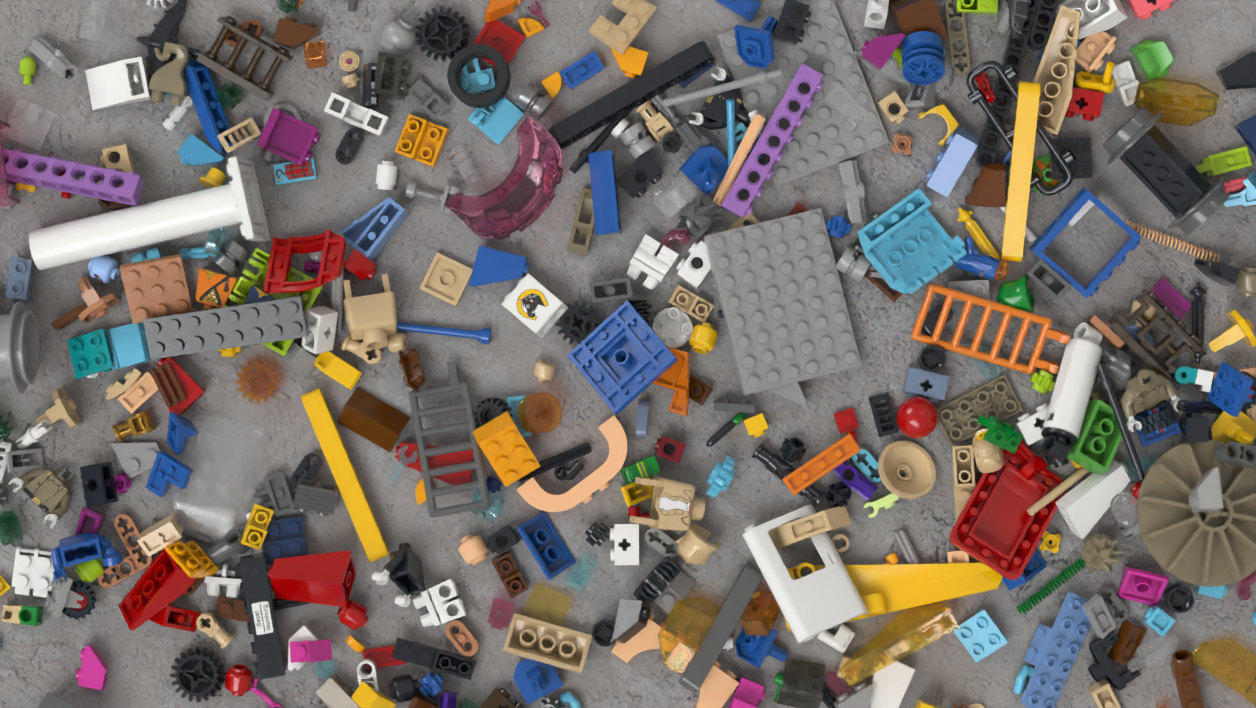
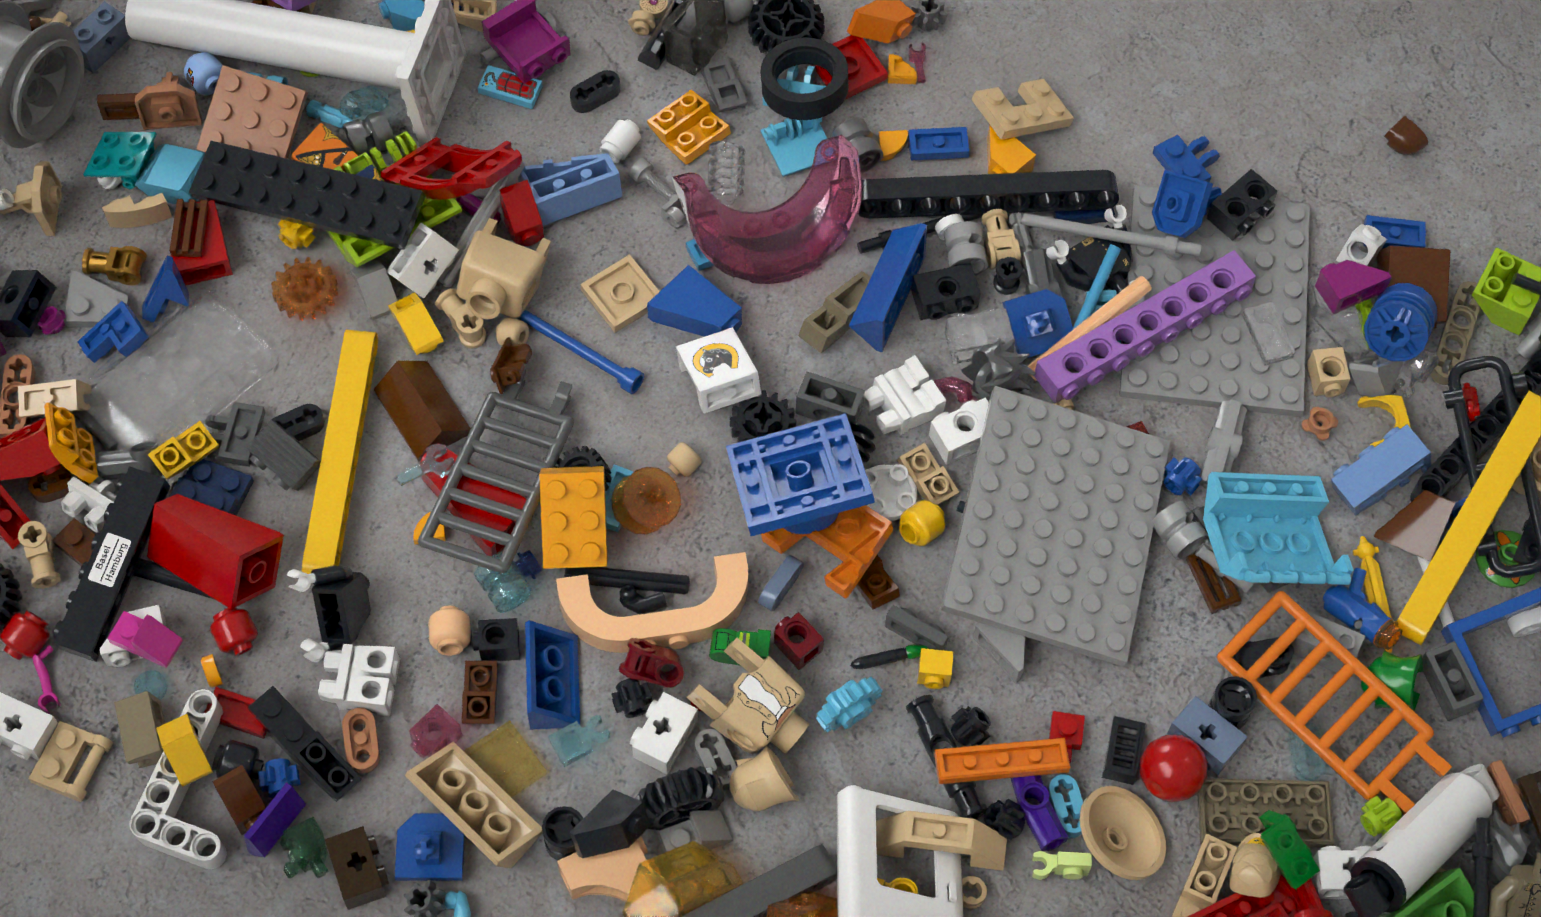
camera: 25 degrees right, 25 degrees down
(139, 393) = (147, 229): light nougat plate -> none
(356, 115) = (636, 69): white arch -> none
(599, 508) = (647, 659): none -> dark red piece
(635, 493) = (716, 670): yellow slope -> none

